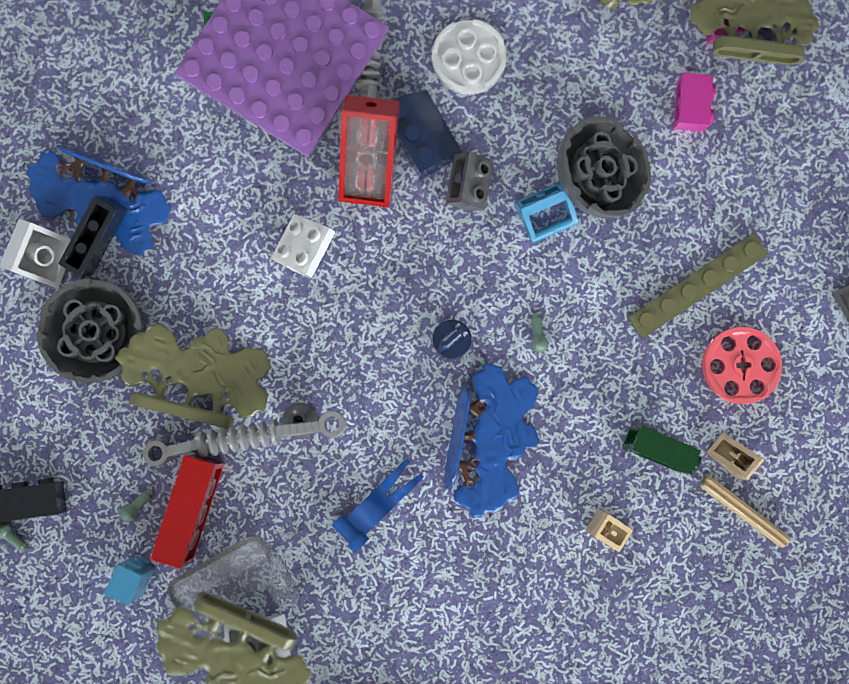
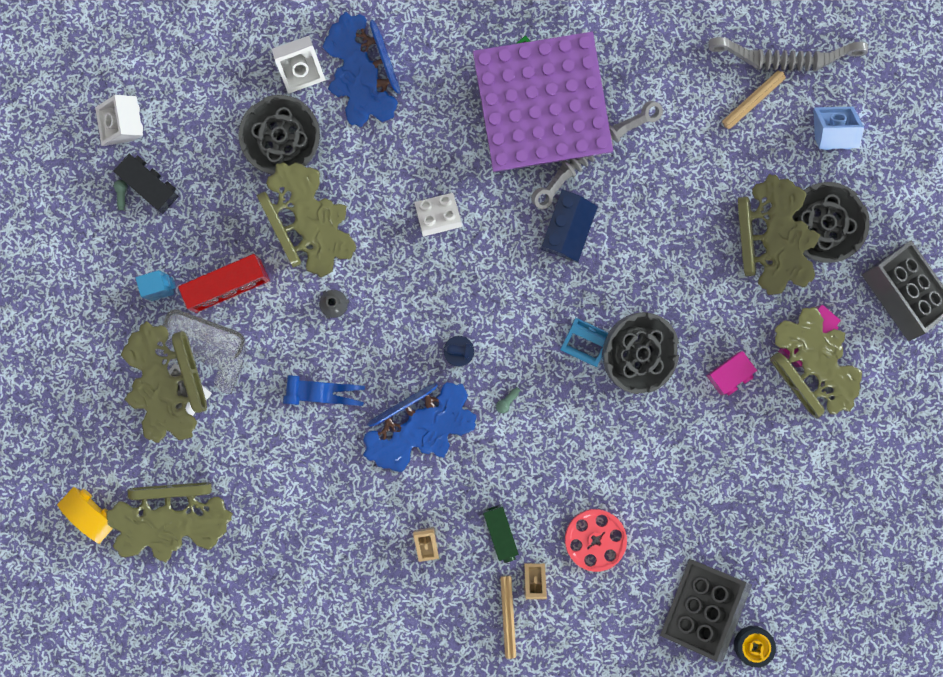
camera: 50 degrees right, 0 degrees up
(93, 236) = (336, 88): black brick -> none
(129, 512) = (193, 250): sand green piece -> none
(243, 437) = (282, 269): light grey piece -> none
(367, 150) = (525, 204): brick -> none
(469, 56) = (641, 213): white tile -> none
(469, 181) = (563, 280): flat silver brick -> none
(697, 286) = (621, 472): olive plate -> none

